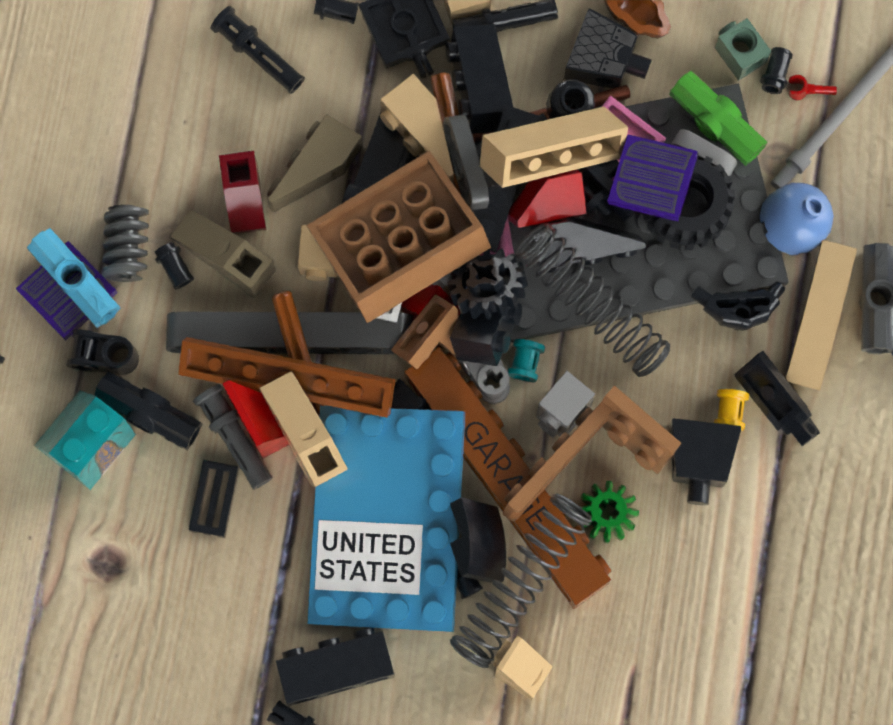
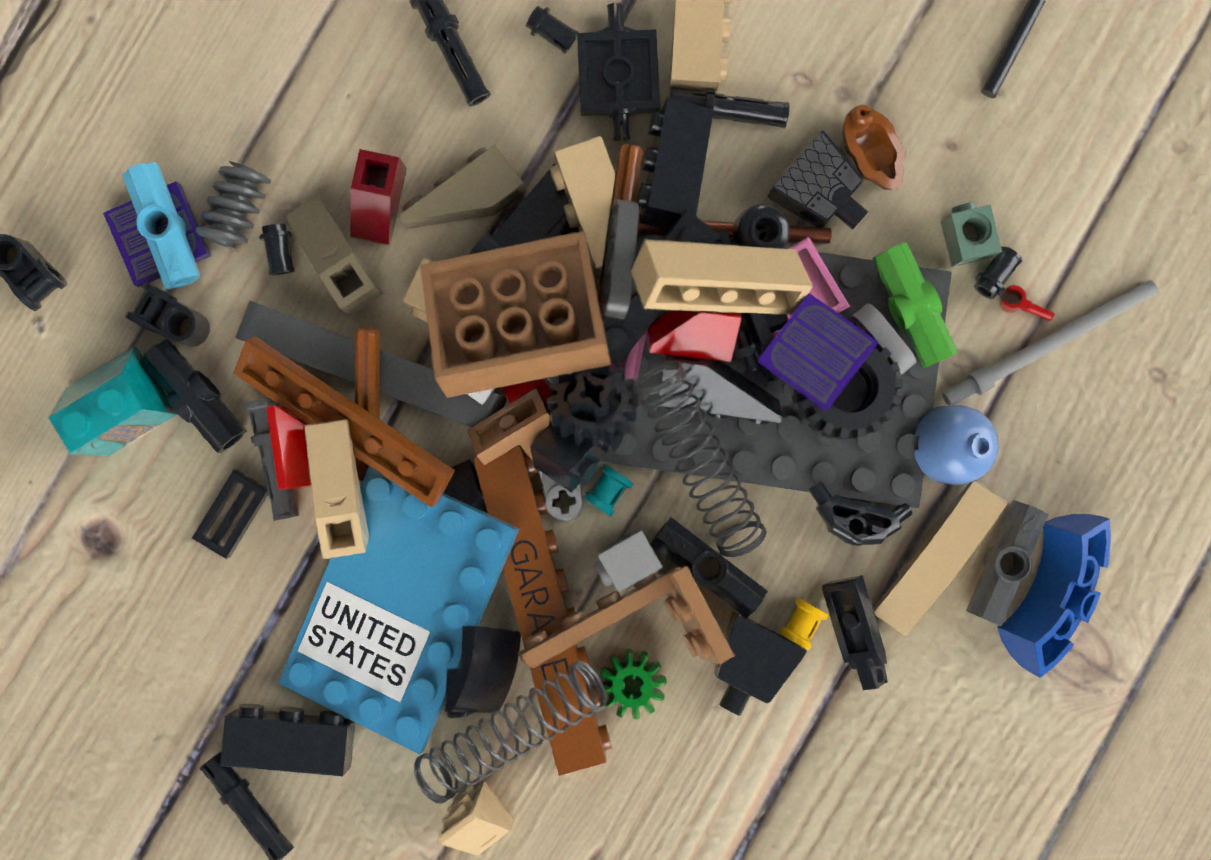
camera: 20 degrees right, 10 degrees up
(656, 400) = (728, 584): none -> black piece

